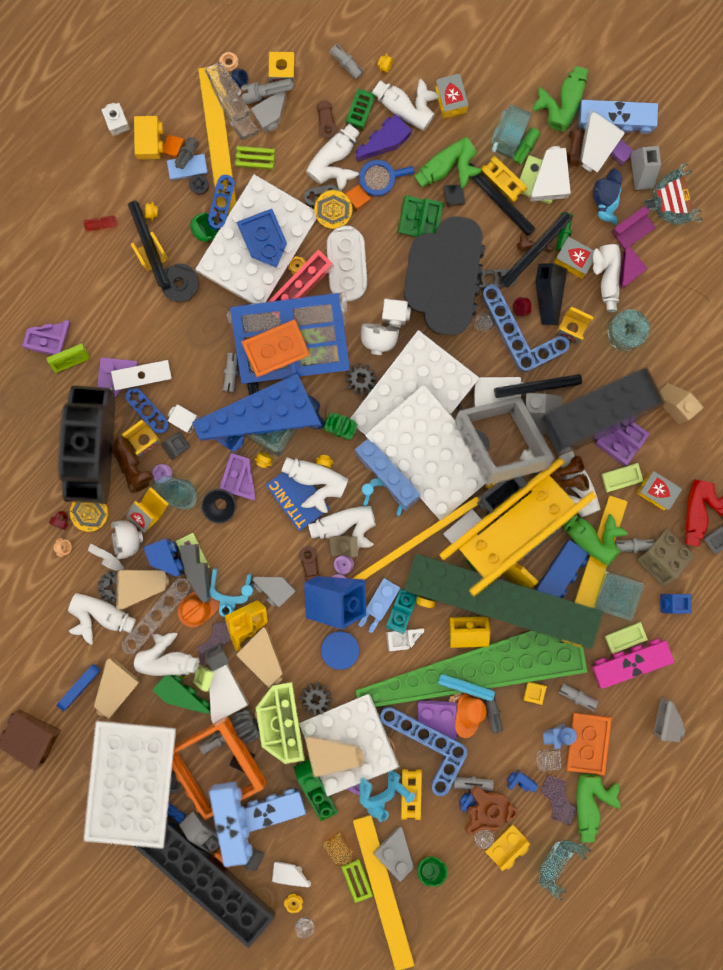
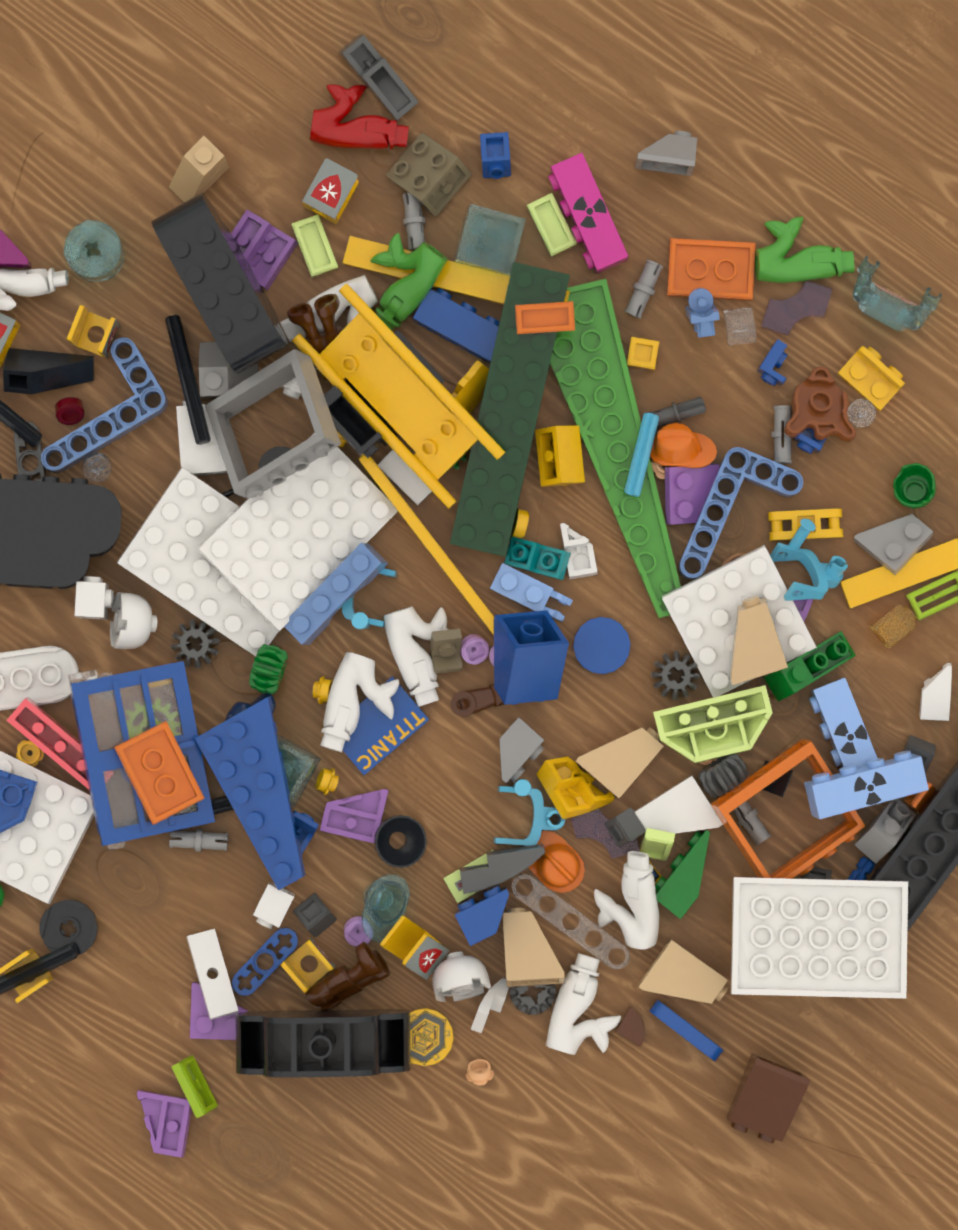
camera: 100 degrees left, 0 degrees up
(55, 521) = (444, 1079): dark red tile -> none
(84, 651) = (632, 1027): none -> reddish brown tile
(563, 629) = (545, 317): none -> orange tile

